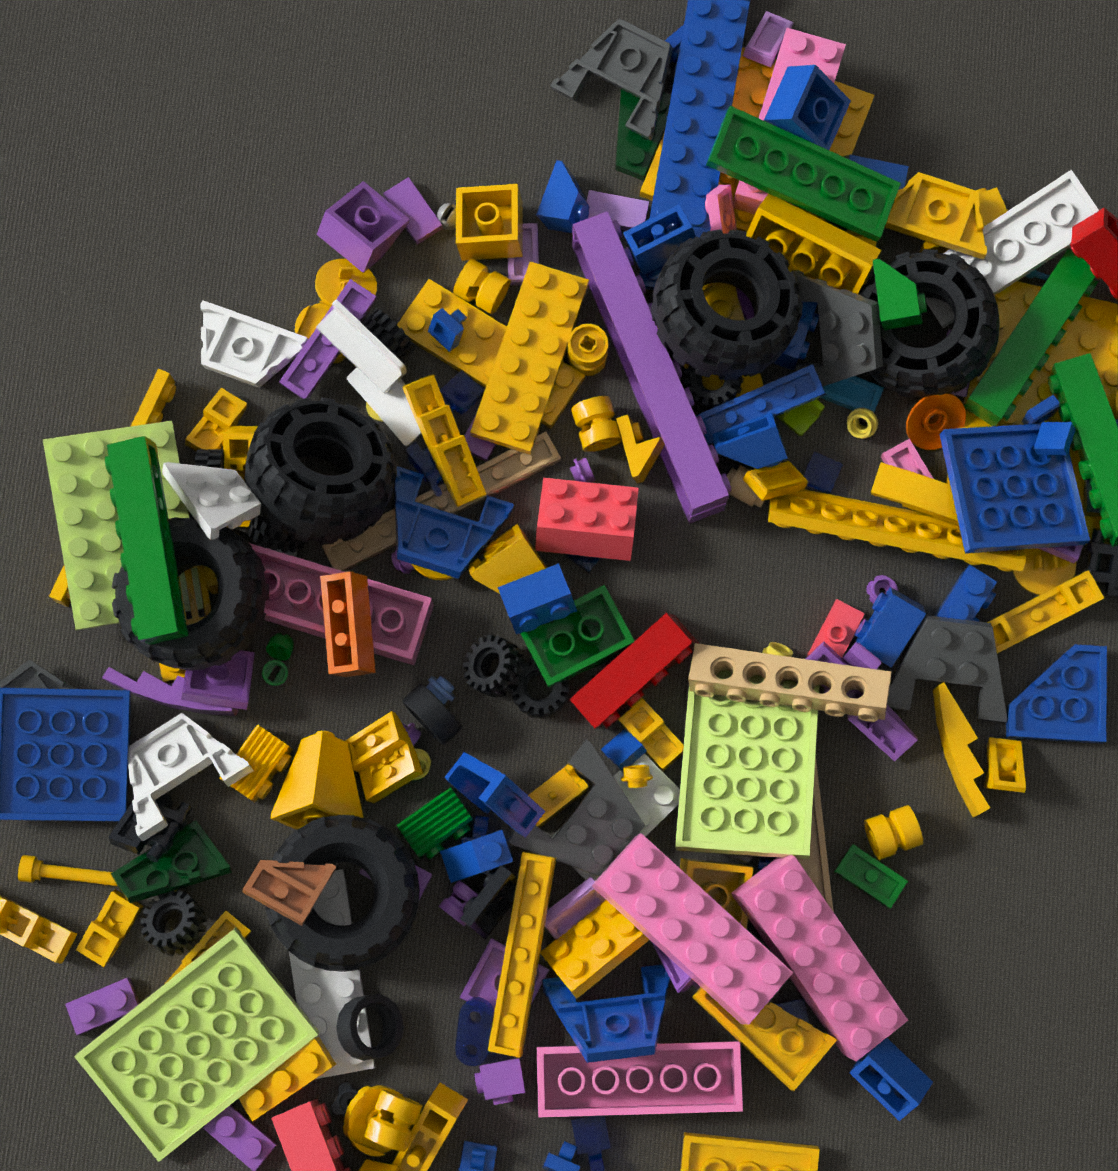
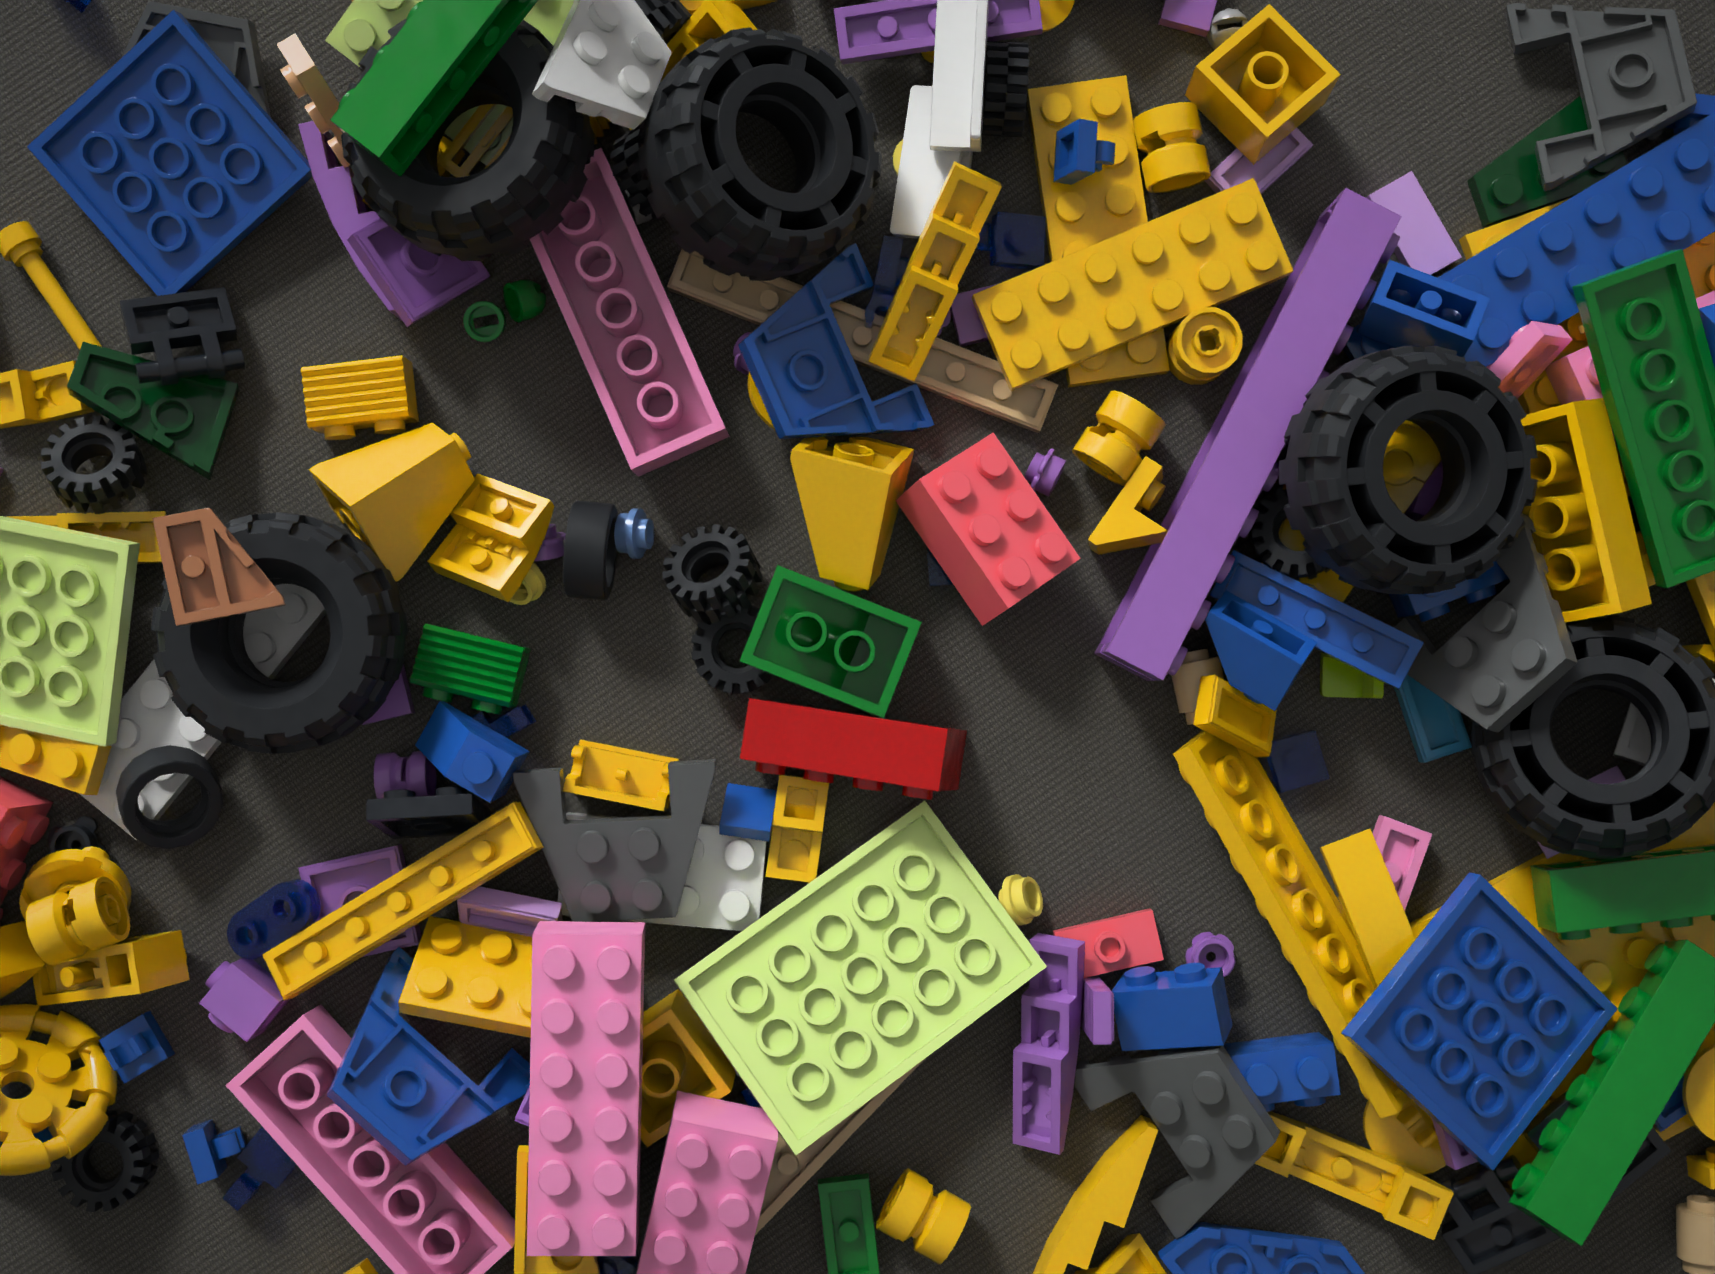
camera: 50 degrees right, 10 degrees up
(113, 651) = (306, 79): none -> light nougat wing
(168, 759) = (274, 288): white wing -> none
(347, 624) = (597, 357): orange brick -> none
(495, 792) = (553, 724): blue panel -> none
(537, 599) = (828, 558): blue brick -> none
(562, 201) = (1369, 150): blue slope -> none
(636, 775) = (726, 856): yellow plate -> none
(775, 669) = (1076, 1056): tan brick -> none
(856, 428) = (1389, 759): light yellow plate -> none
(897, 298) = (1606, 680): green slope -> none
(924, 430) = (1484, 845): orange dish -> none
(1041, 411) = (1609, 972): blue tile -> none
(1054, 438) = (1588, 1022): blue tile -> none

